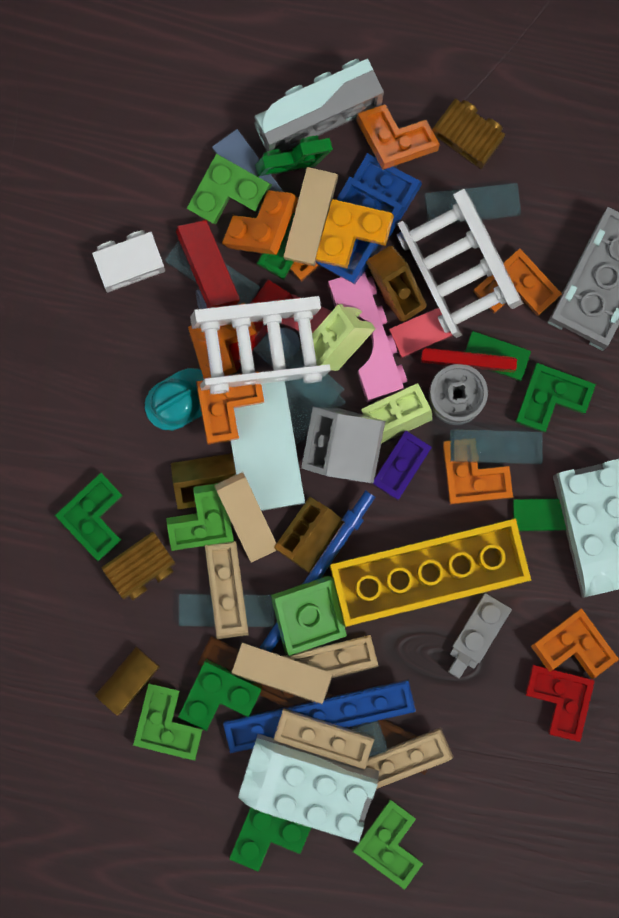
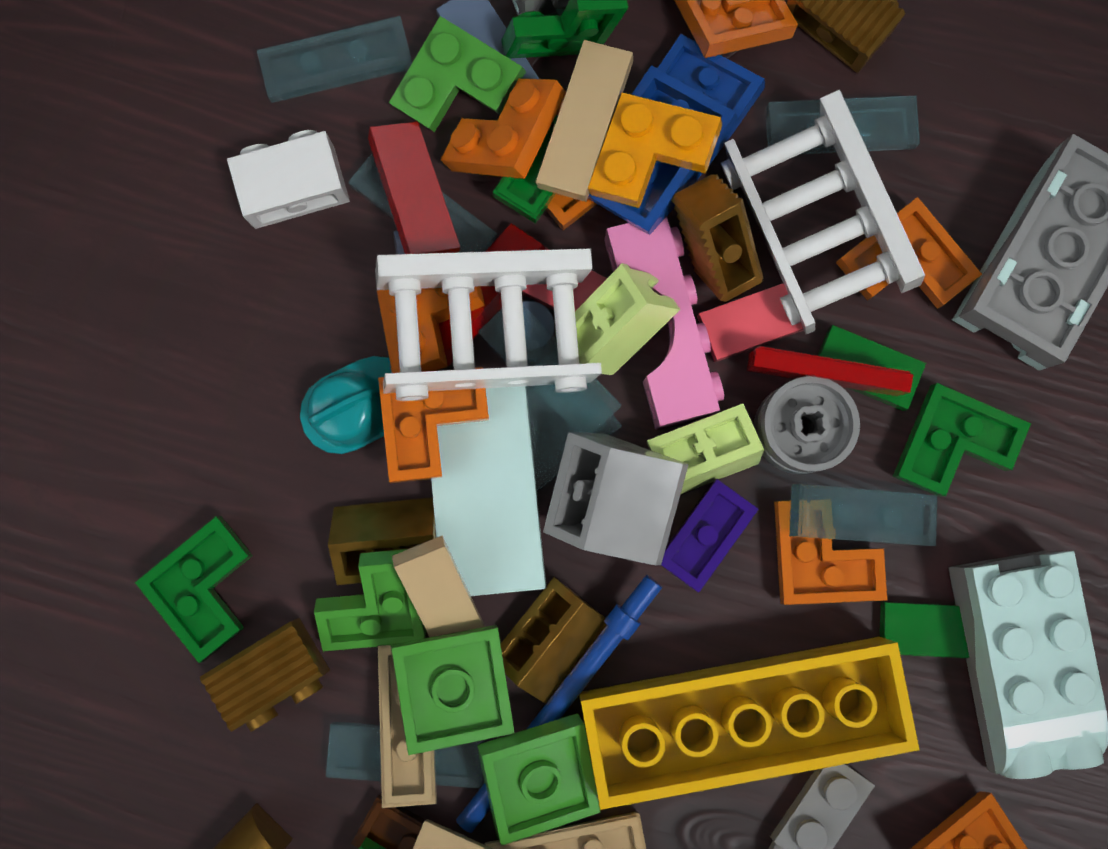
camera: 10 degrees right, 0 degrees up
(150, 181) = (335, 59): none -> clear light blue tile
(253, 563) = (452, 689): none -> bright green plate

